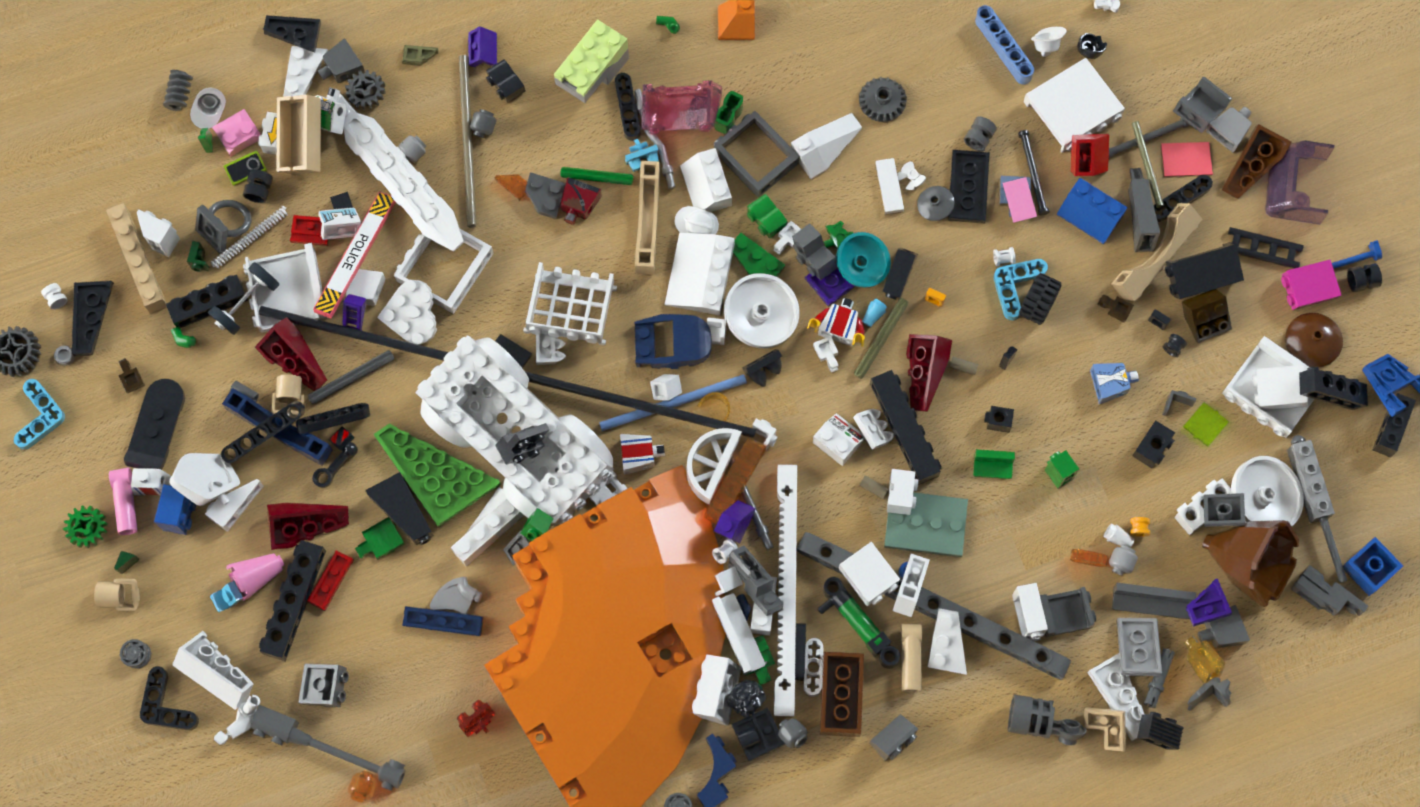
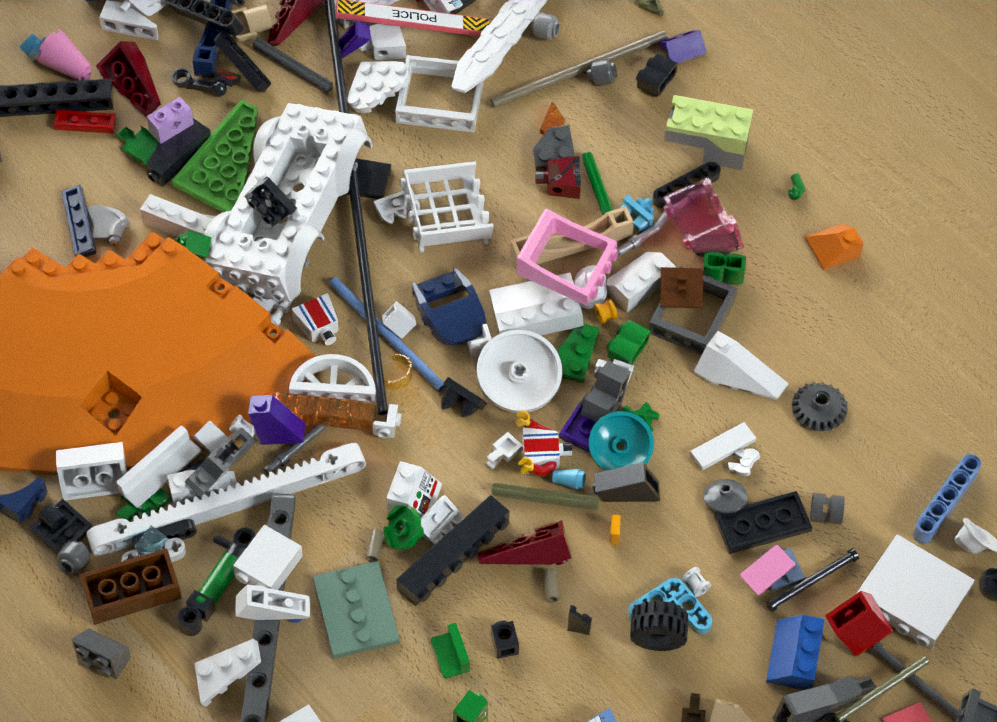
camera: 65 degrees right, 15 degrees down
(380, 501) = (170, 120): none -> lavender brick
(677, 262) = (545, 227): none -> bright pink windscreen
(728, 221) = (605, 311): none -> light orange wheel
(739, 152) = (681, 287): none -> reddish brown piece
(746, 697) = (93, 498): black hair -> none
(809, 663) = (151, 541): none -> clear light blue slope
(876, 448) = (412, 528): none -> green plate
(901, 492) = (375, 567): white brick -> none
(911, 657) = (219, 635): tan piece -> none

